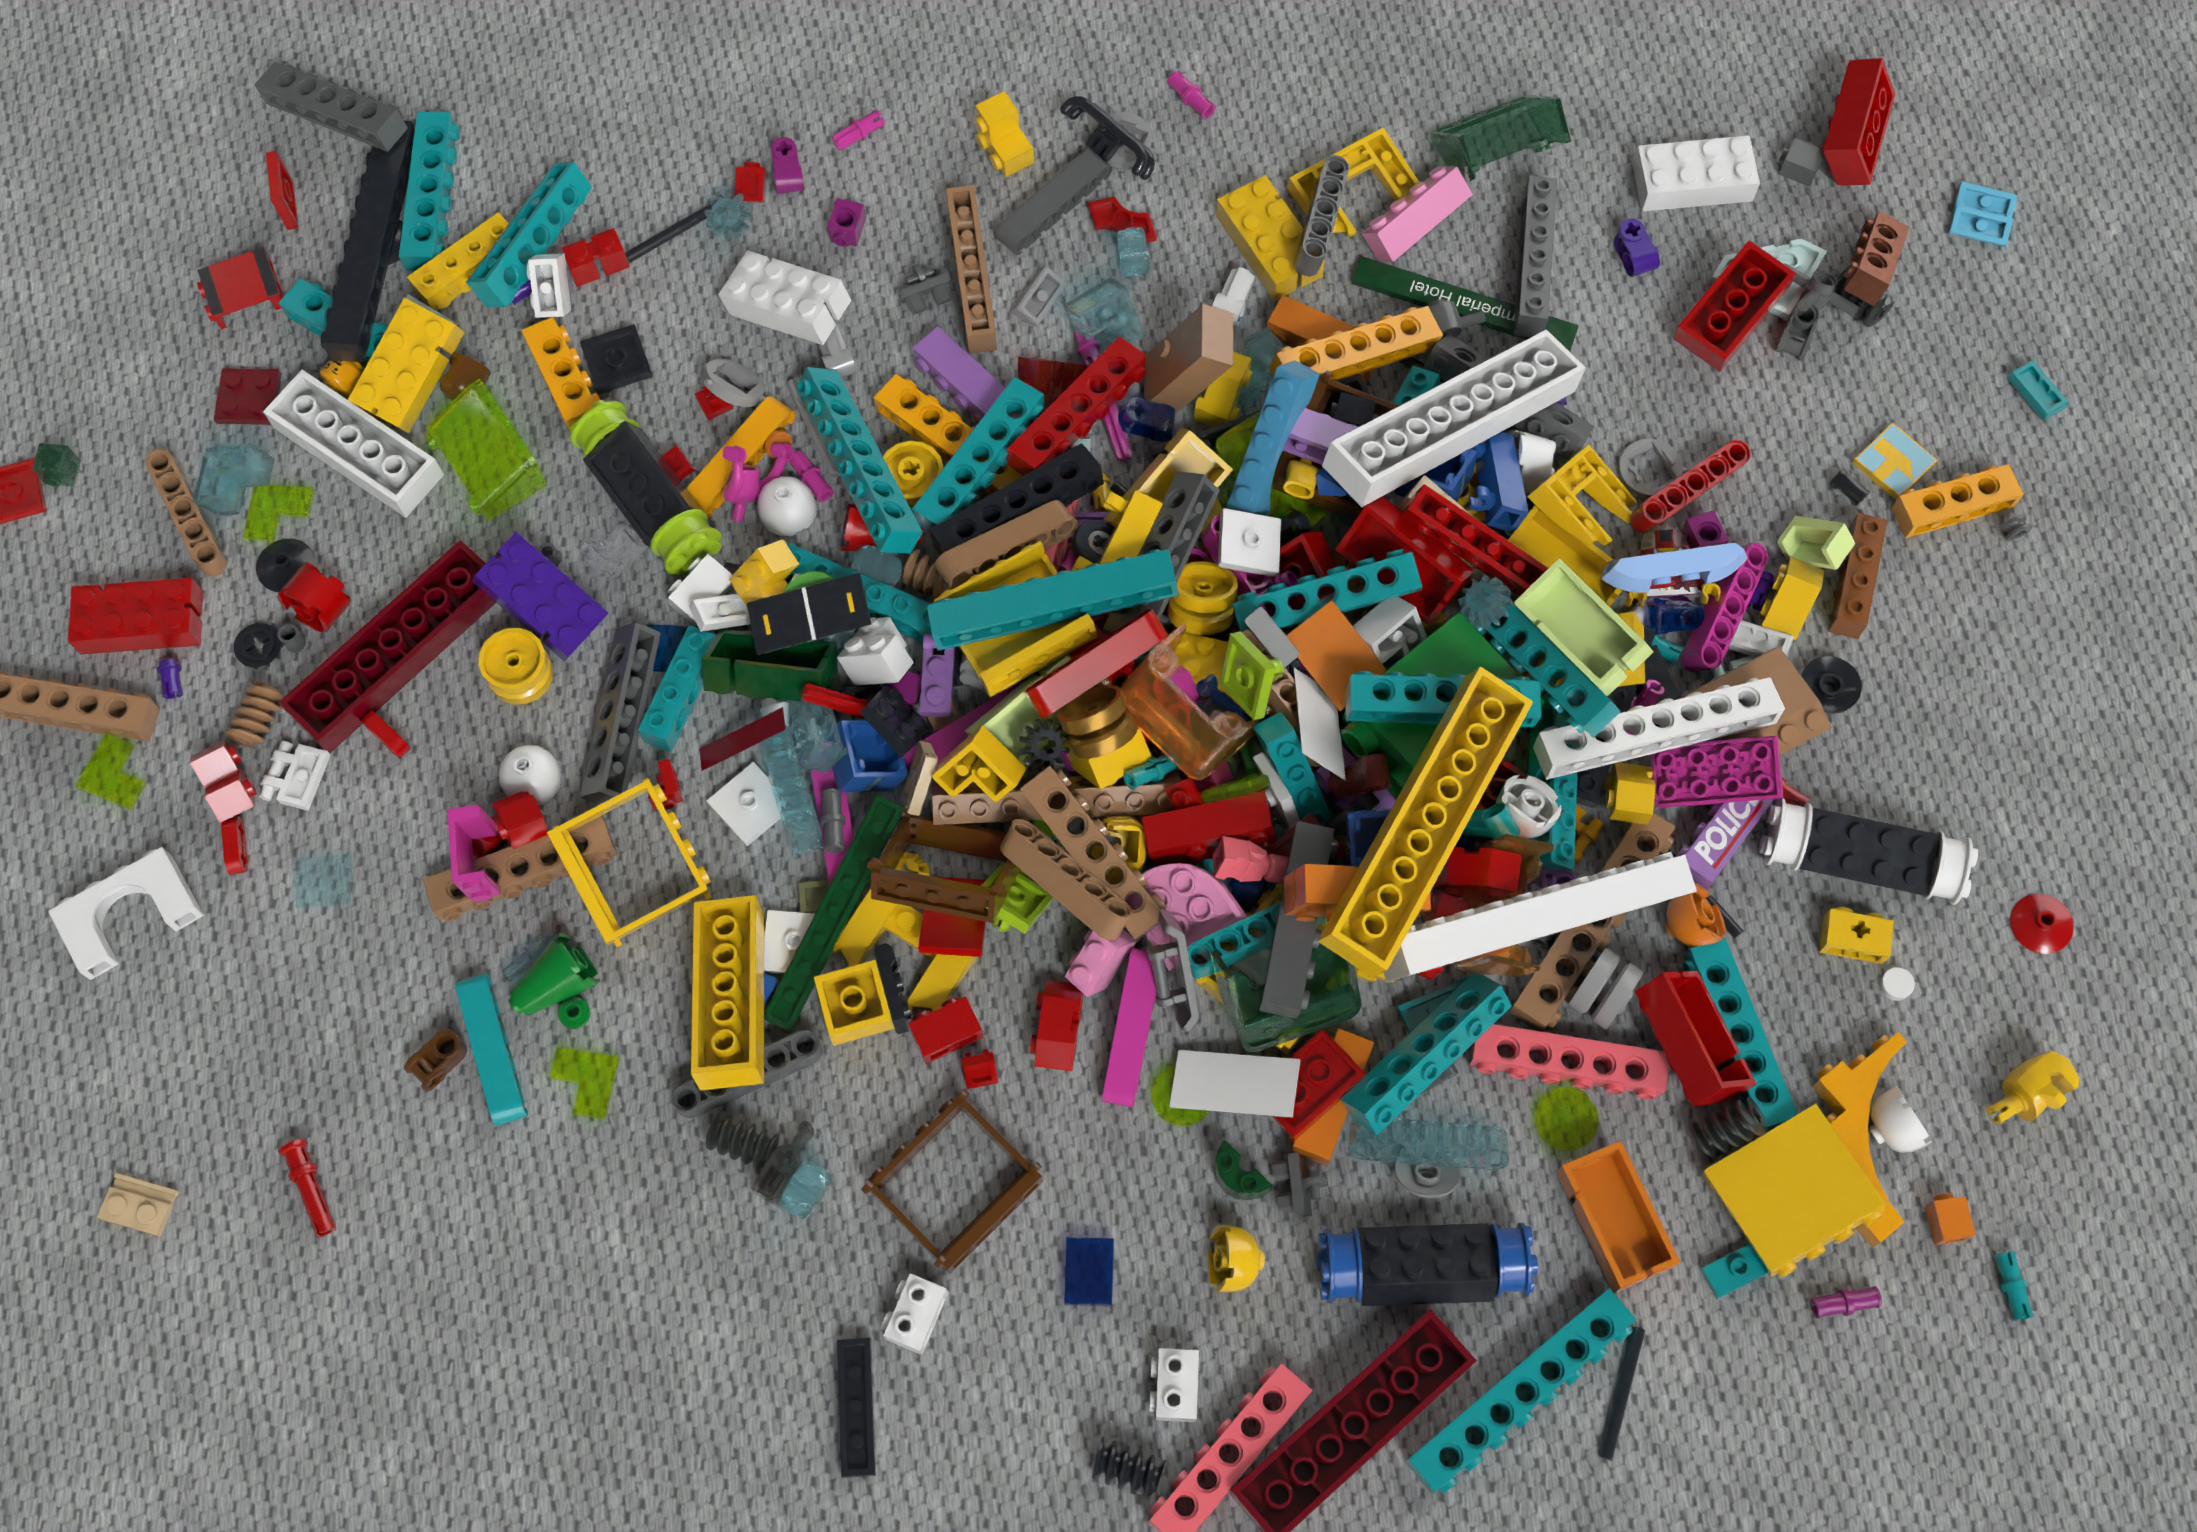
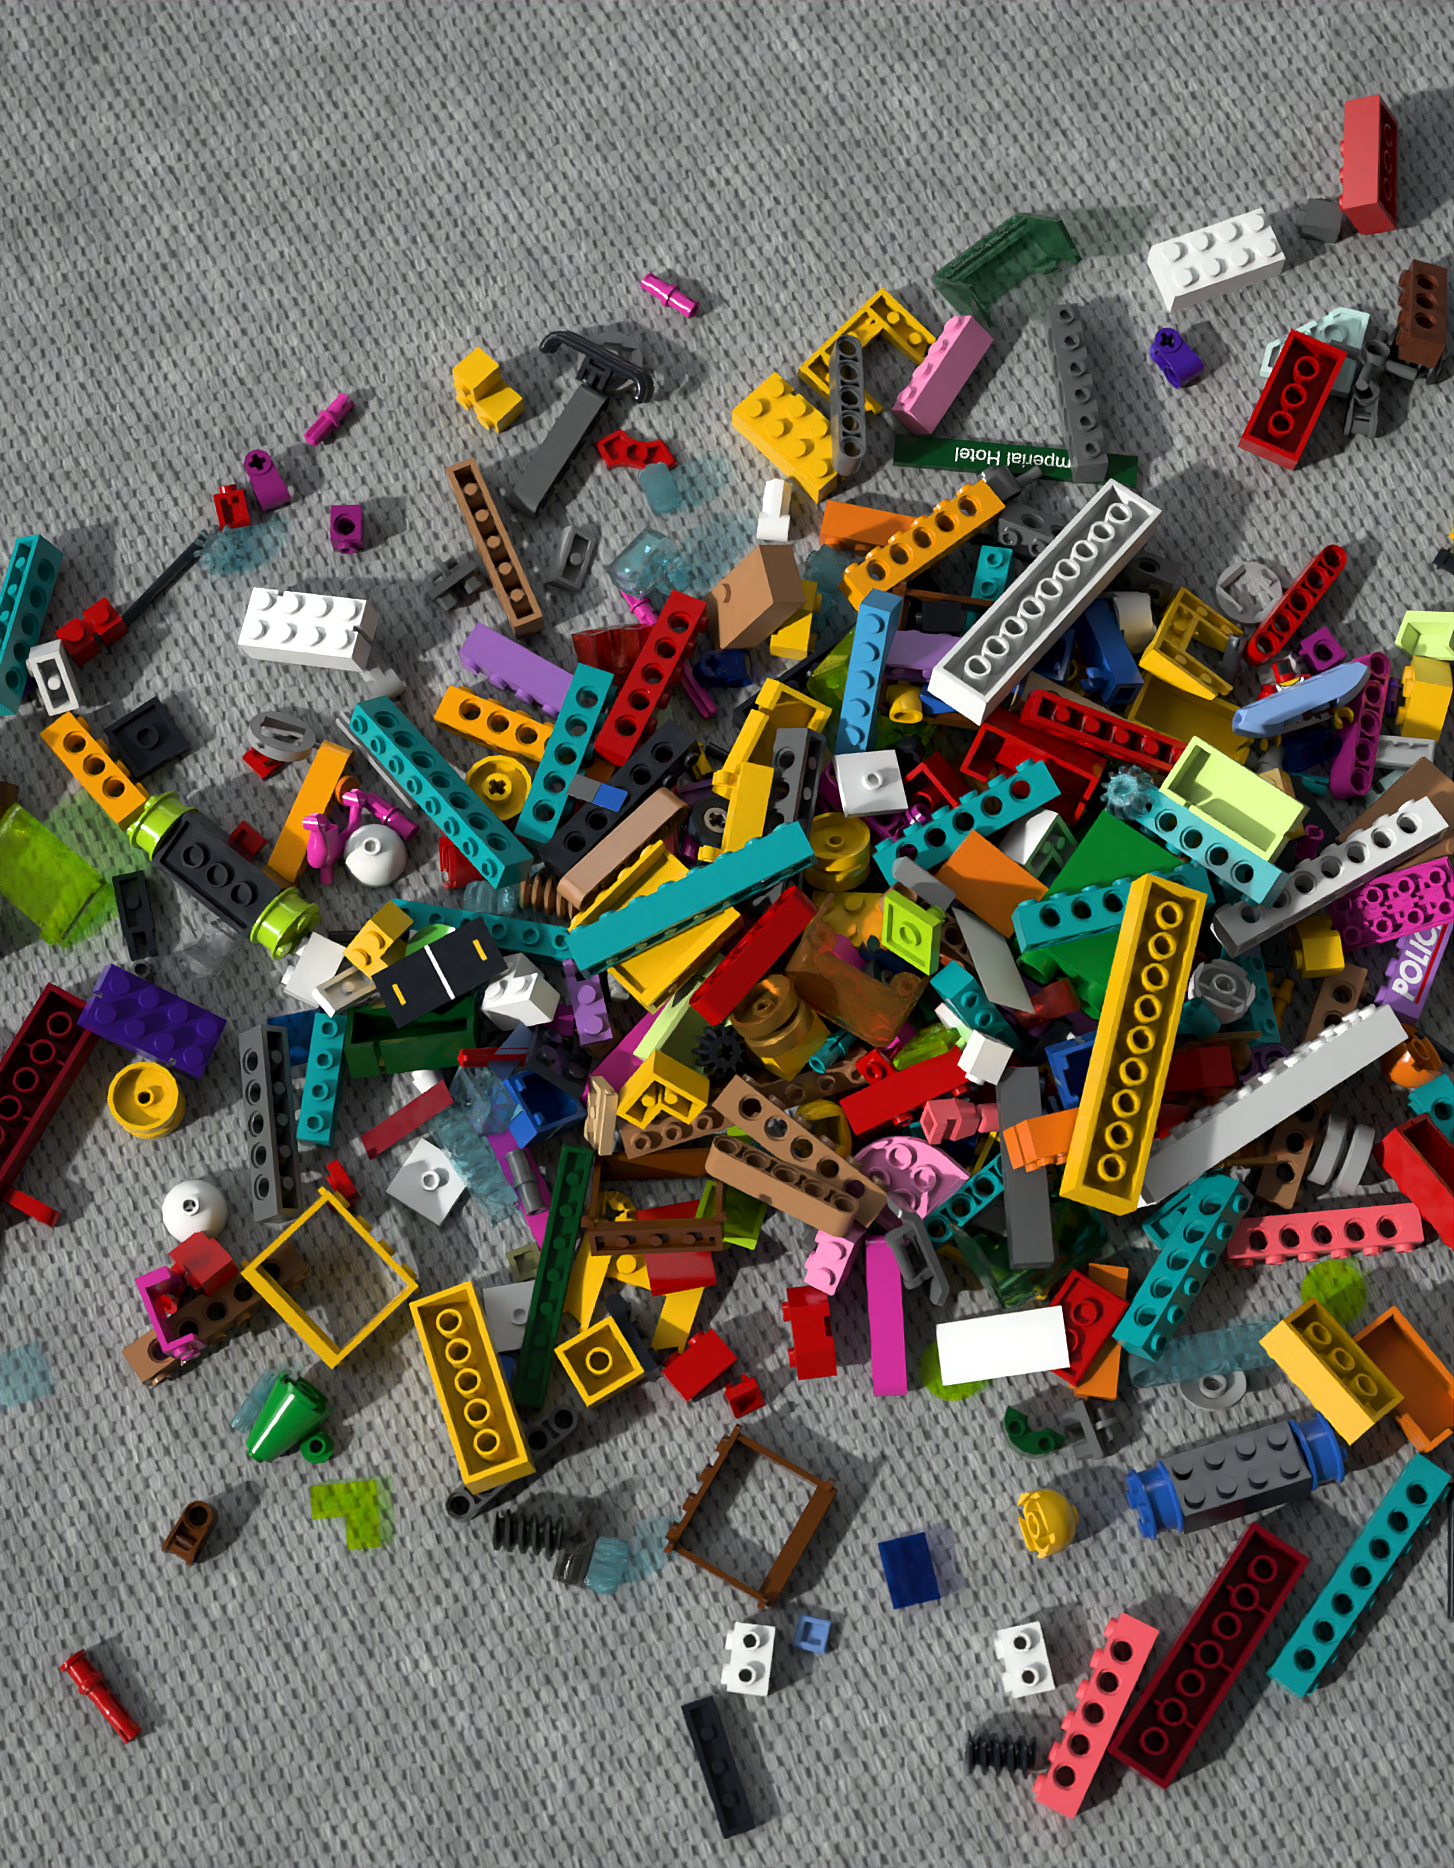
camera: 15 degrees left, 5 degrees up
(489, 1049) = (244, 1507): teal beam -> none
(559, 503) = (135, 911): none -> black hinge
(863, 691) = (519, 1038): none -> medium blue sticker
(981, 1306) = (812, 1633): none -> medium blue tile
(997, 491) = (597, 792): none -> sticker
(1285, 808) = (984, 1058): none -> white brick
(1543, 1184) = (1331, 1370): none -> yellow brick
(1616, 523) = (1230, 663): none -> dark grey pin

